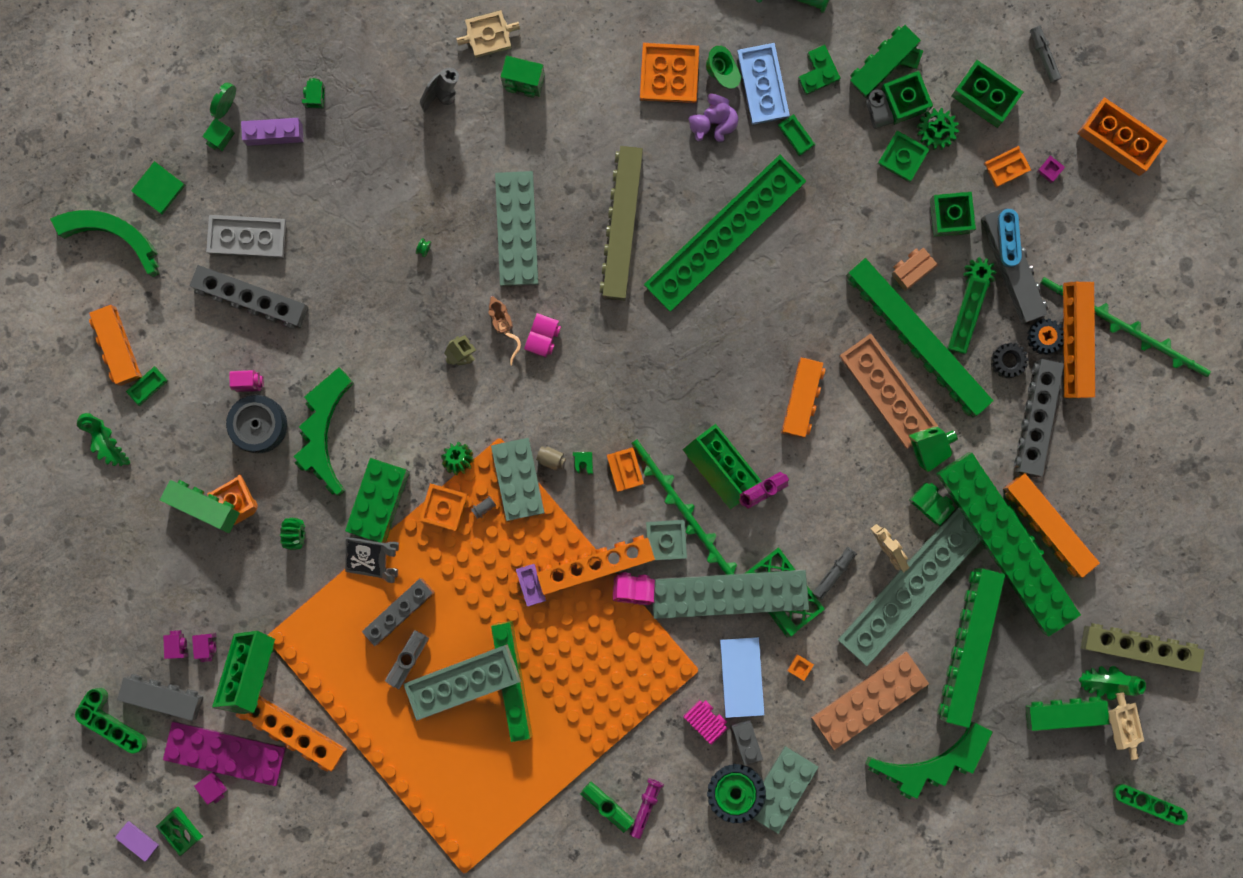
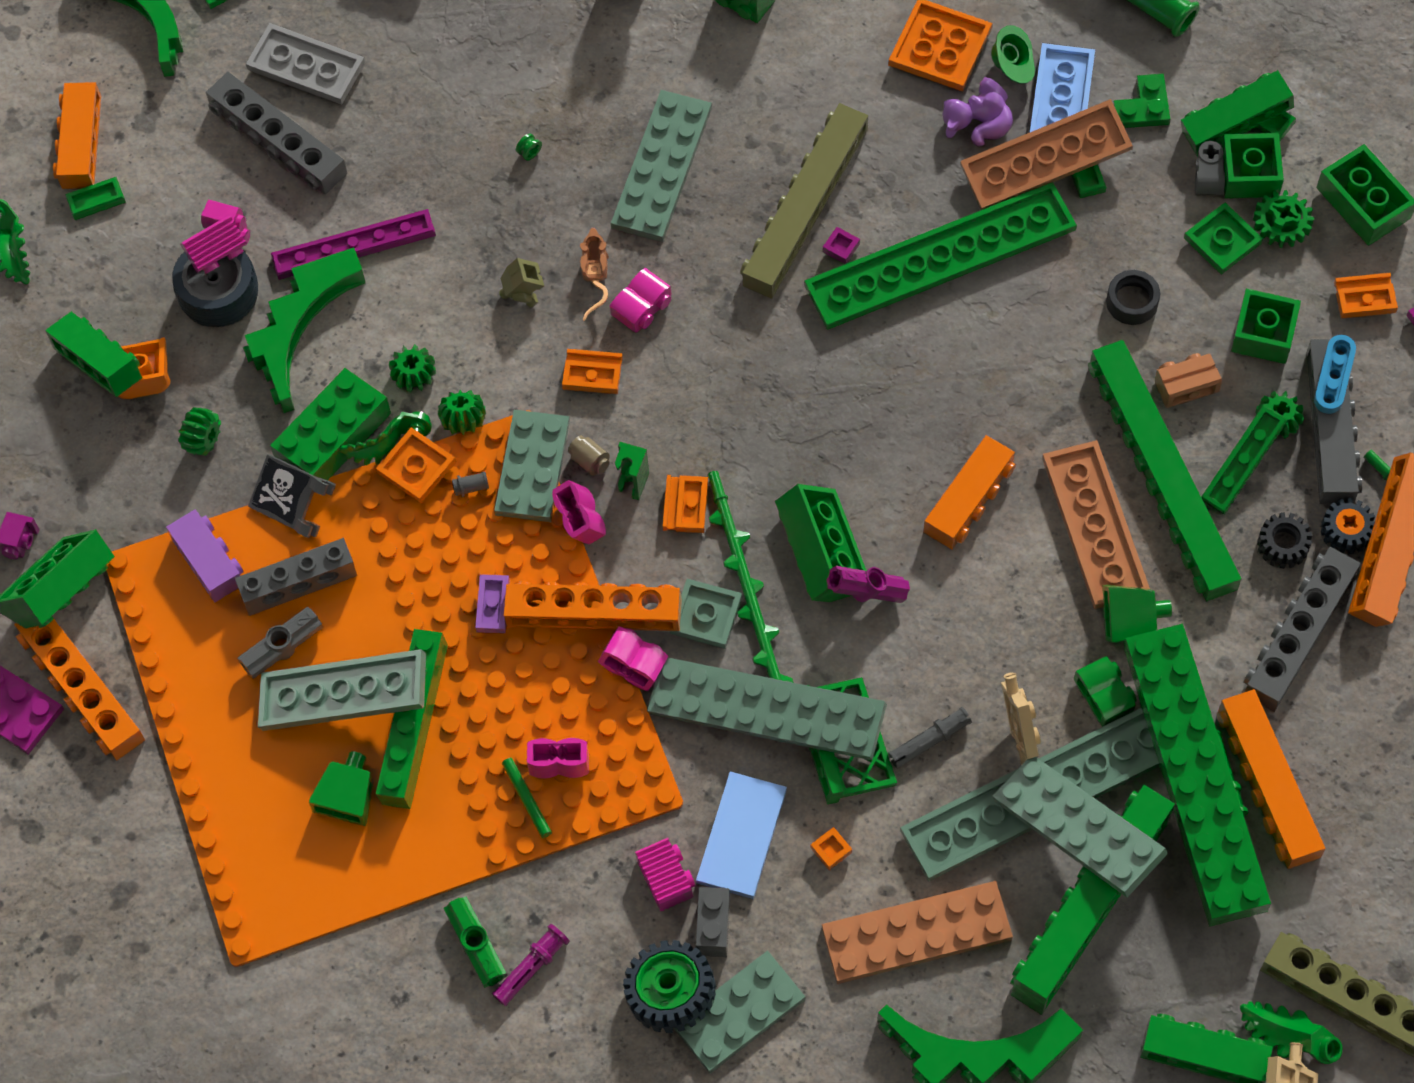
camera: 25 degrees right, 20 degrees down
(248, 406) = (213, 244): none -> dark pink brick
(333, 617) = (205, 554): none -> medium lavender brick
(334, 358) = (365, 241): none -> magenta tile
(404, 437) = (408, 359): none -> green gear
(430, 476) = (388, 438): none -> green plant
(488, 741) = (344, 791): none -> green torso
(529, 397) = (592, 371): none -> orange plate
(559, 500) = (579, 512): none -> dark pink brick
(602, 704) = (526, 797): none -> green bar
(608, 677) = (565, 757): none -> dark pink brick
(657, 248) = (841, 245): none -> magenta plate
(770, 136) = (1046, 154): none -> nougat plate
(857, 206) = (1138, 279): none -> black tyre
(951, 608) = (1080, 825): none -> sand green plate

